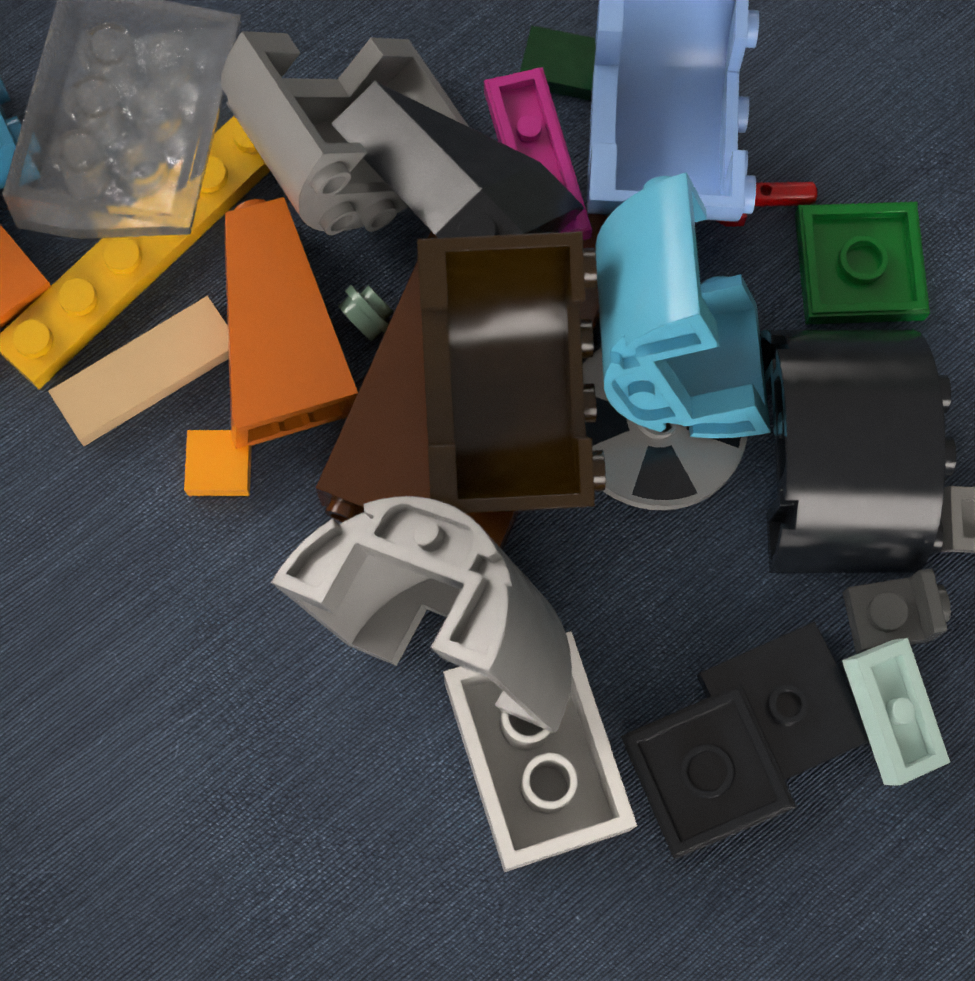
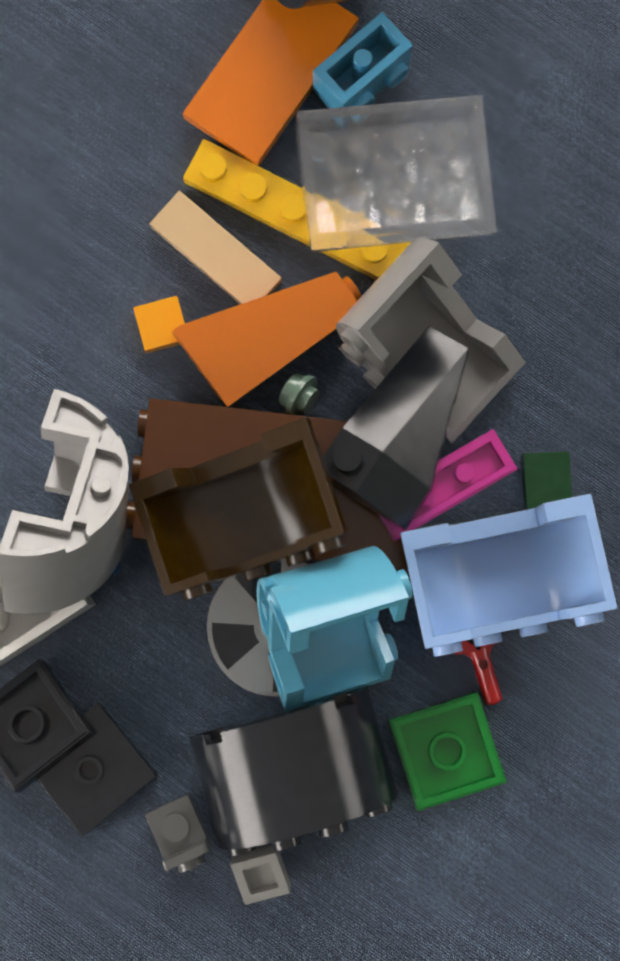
camera: 75 degrees right, 10 degrees up
(896, 712) = (103, 848): light aqua plate -> none

